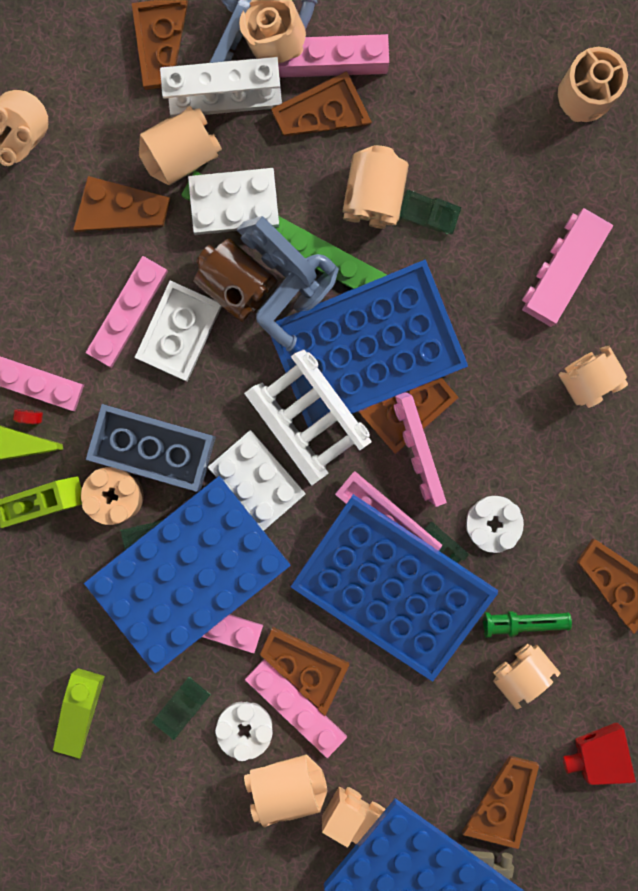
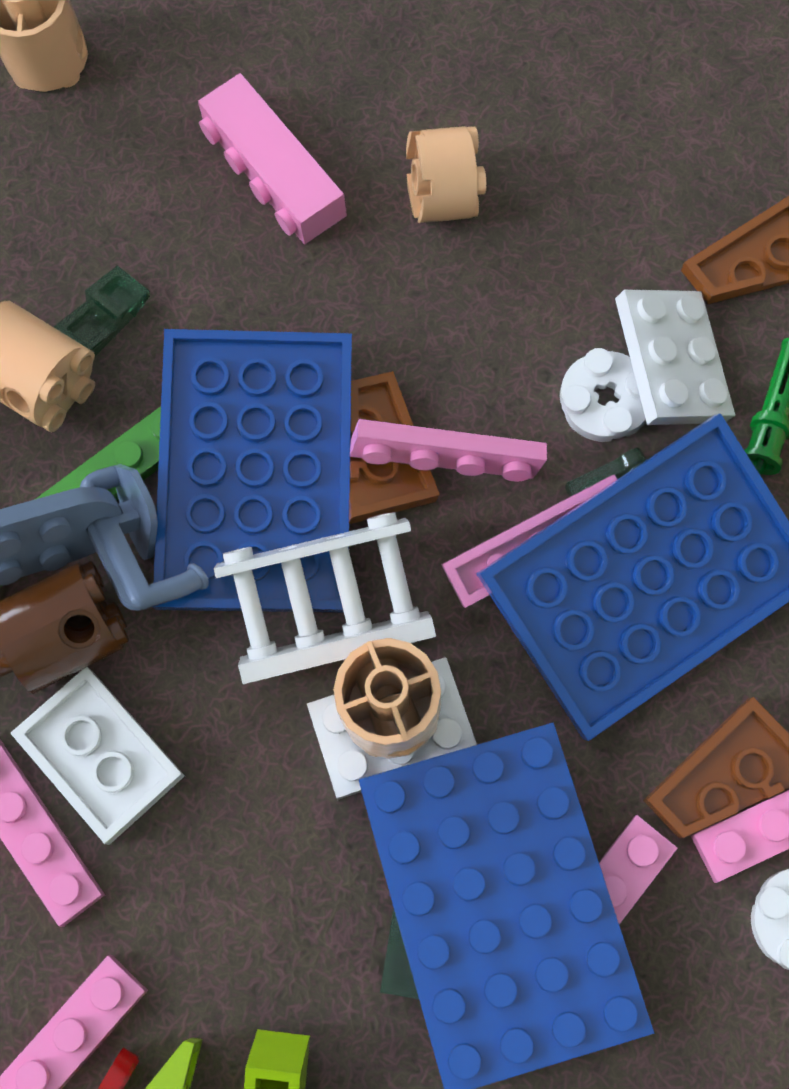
camera: 60 degrees left, 15 degrees down
(98, 504) = (284, 982): light nougat brick -> none
(150, 448) = (261, 878): sand blue brick -> none
(181, 708) = (730, 1017): clear green slope -> none
(251, 486) = (388, 697): none -> light nougat cylinder
(532, 554) = (674, 356): none -> white plate

